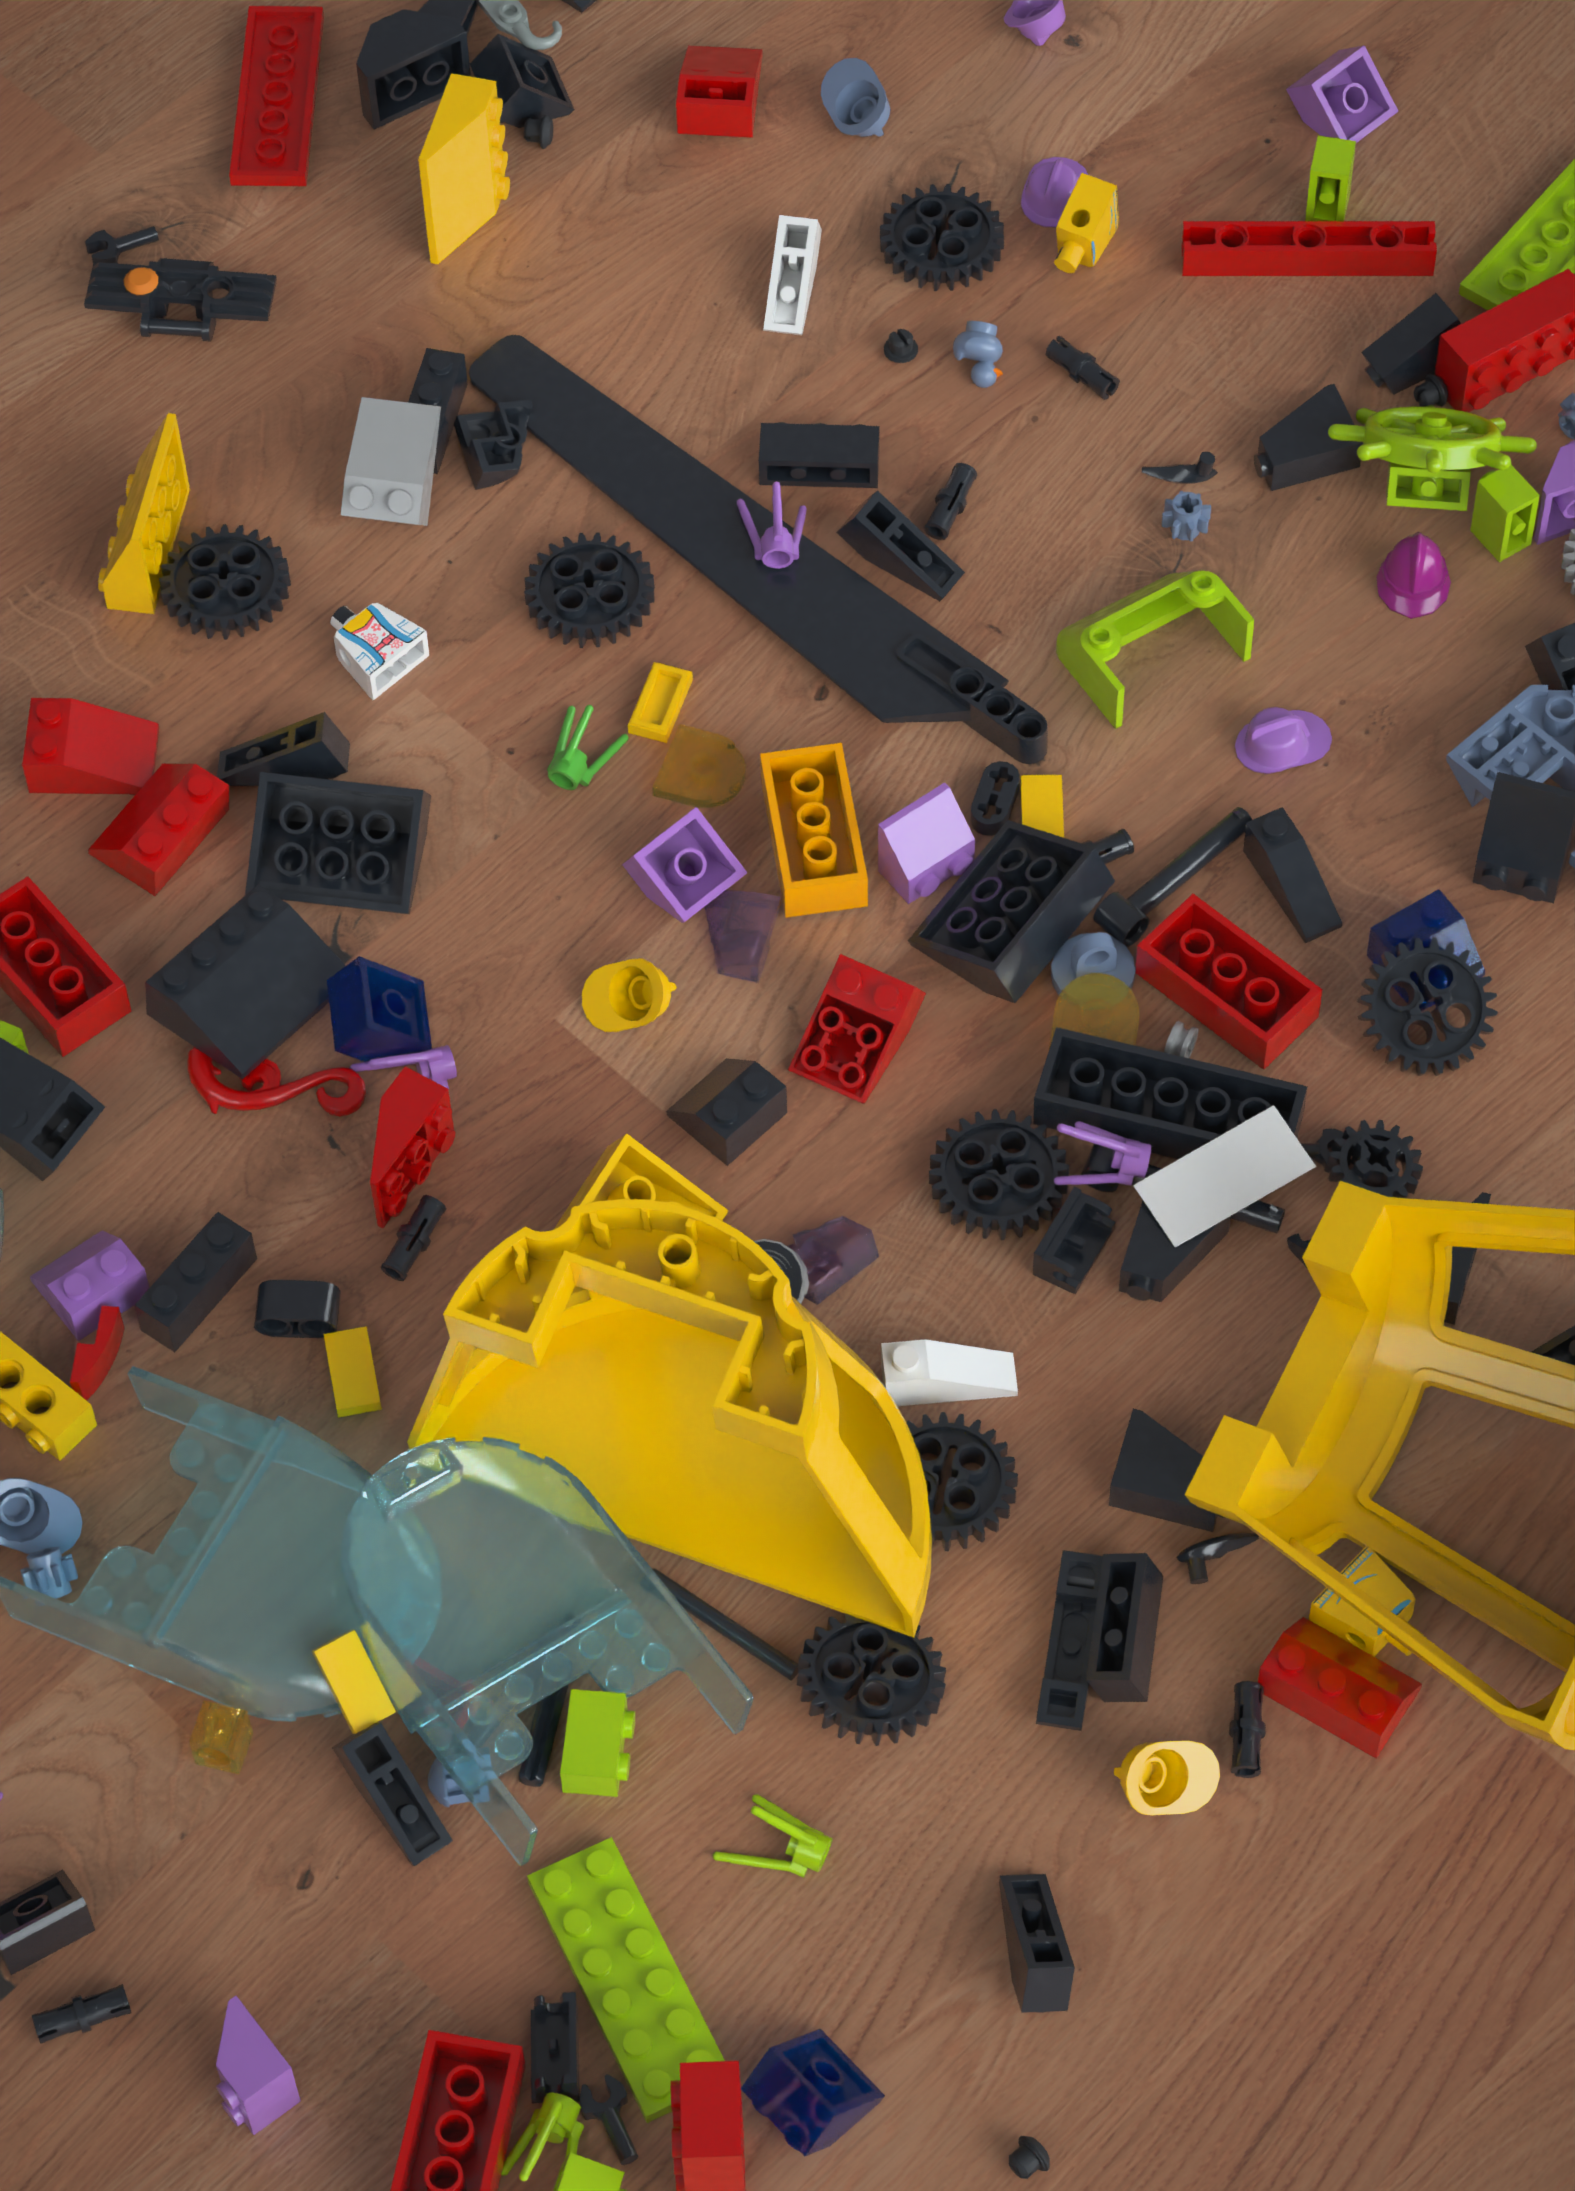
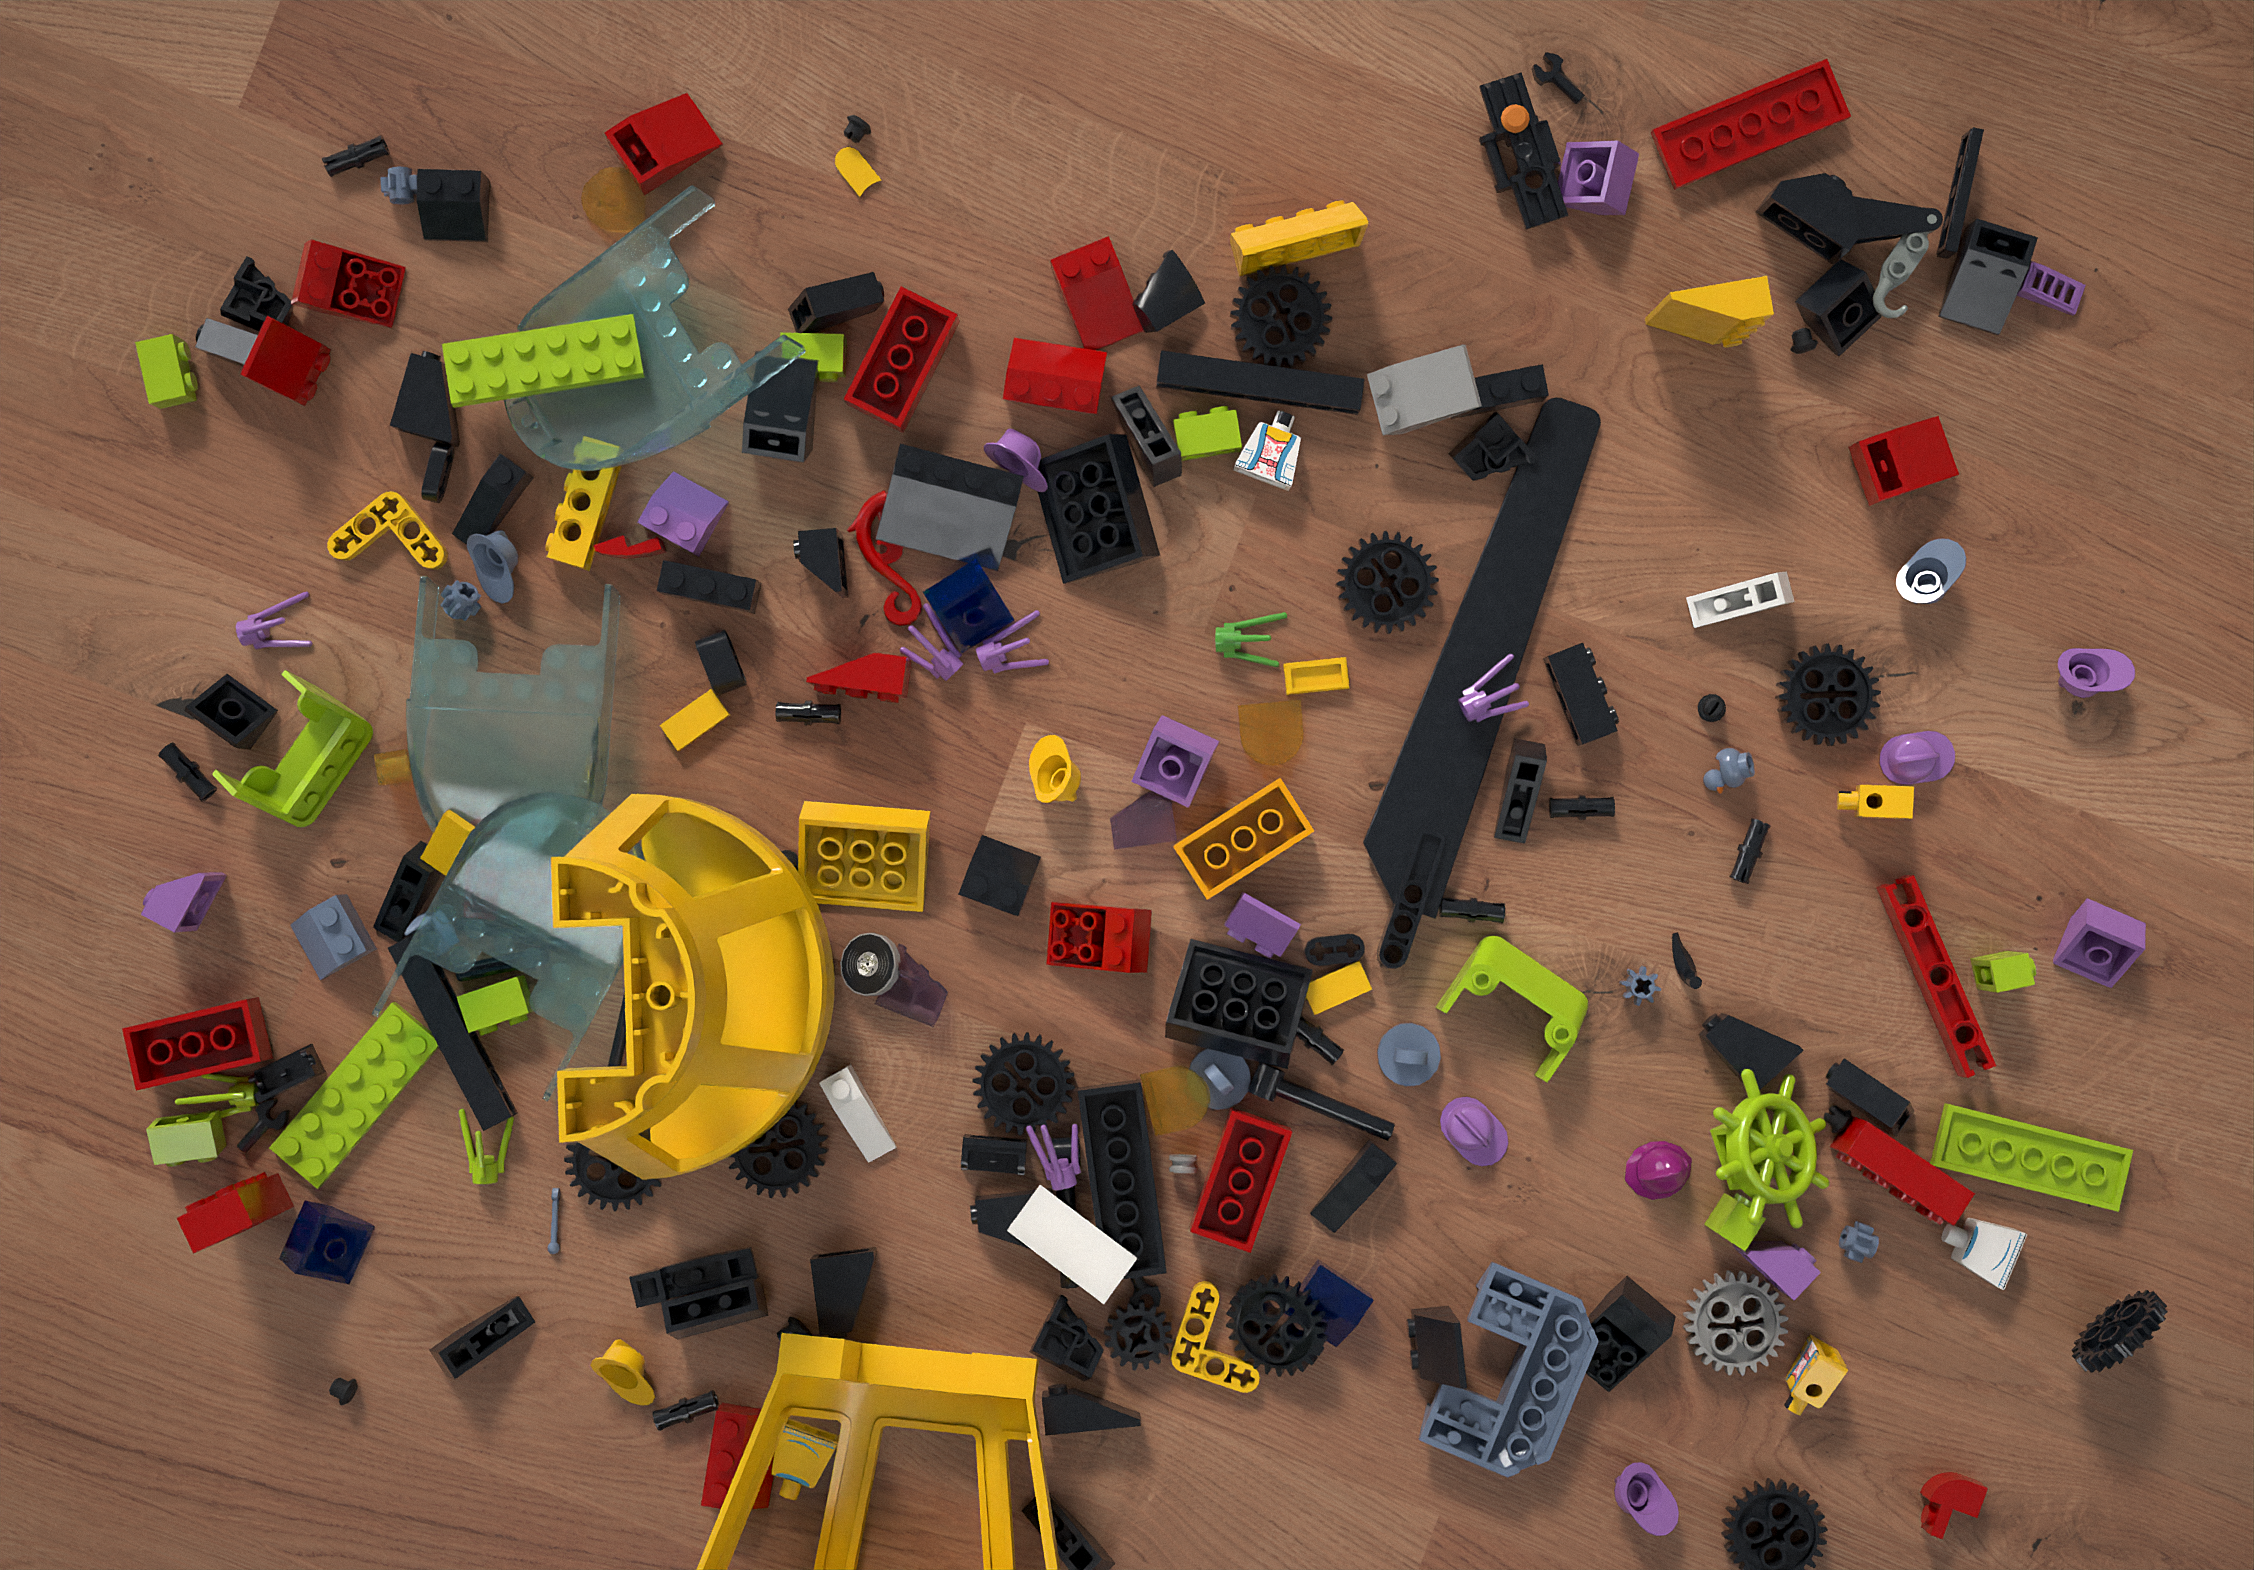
camera: 65 degrees right, 30 degrees up
(133, 680) = (1167, 295): none -> black slope
(146, 1830) = (312, 764): none -> lime windscreen
(227, 884) = (1018, 456): none -> medium lavender piece
(238, 1132) = (824, 556): none -> black slope
(250, 237) = (1597, 176): none -> medium lavender slope
(287, 629) = (1260, 382): none -> black piece
(318, 687) = (1207, 434): none -> lime brick
(399, 1914) = (332, 935): none -> sand blue slope
(453, 1013) = (992, 654): none -> medium lavender plant
(618, 1810) = (461, 1049): none -> black piece
(953, 1811) = (554, 1247): none -> sand blue hinge
(1018, 644) = (1472, 910): none -> black pin
(1158, 769) = (1408, 1054): none -> sand blue tile
(1427, 1115) = (1202, 1354): none -> yellow beam

